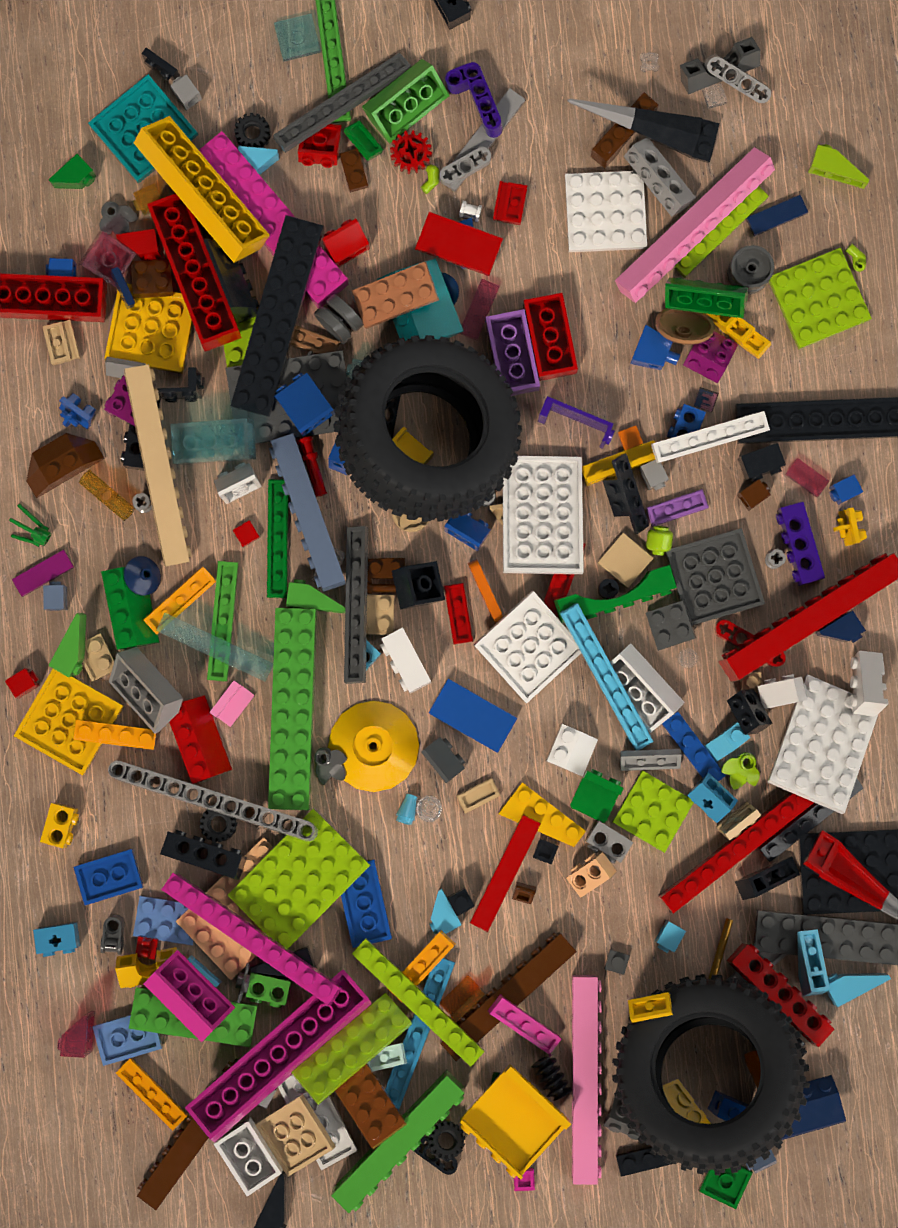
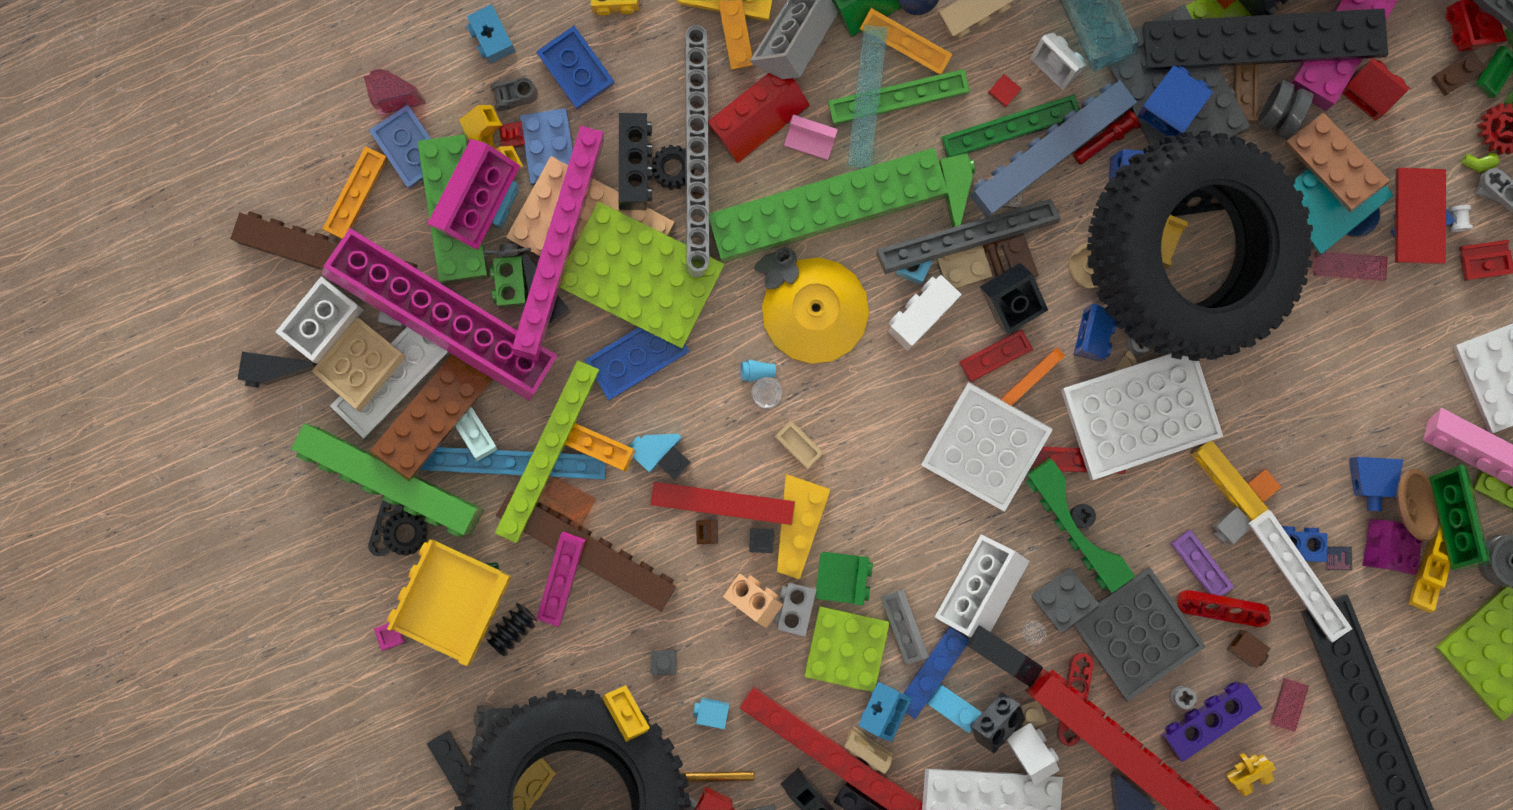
camera: 75 degrees right, 0 degrees up
(351, 1048) = (473, 394): lime plate -> none
(443, 759) = (826, 391): dark grey slope -> none
(472, 715) = (886, 409): blue tile -> none
(513, 350) = (1318, 318): medium lavender brick -> none
(550, 336) = (1349, 355): red brick -> none
(571, 750) = (885, 533): white slope -> none
(578, 415) = (1270, 417): dark purple panel -> none
(585, 1079) = (520, 668): bright pink brick -> none
(606, 677) = (982, 544): medium azure tile -> none
(624, 494) = (1197, 499): black bracket -> none
(625, 560) = (1121, 525): tan tile -> none
(659, 540) = (1158, 556): lime head -> none
(699, 689) = (1004, 656): none -> black slope
(716, 503) = (1257, 615): none -> red beam
(741, 773) = (923, 735): lime plate -> none
(761, 462) = (1289, 646): black brick -> none
(845, 490) = (1292, 754): blue brick -> none

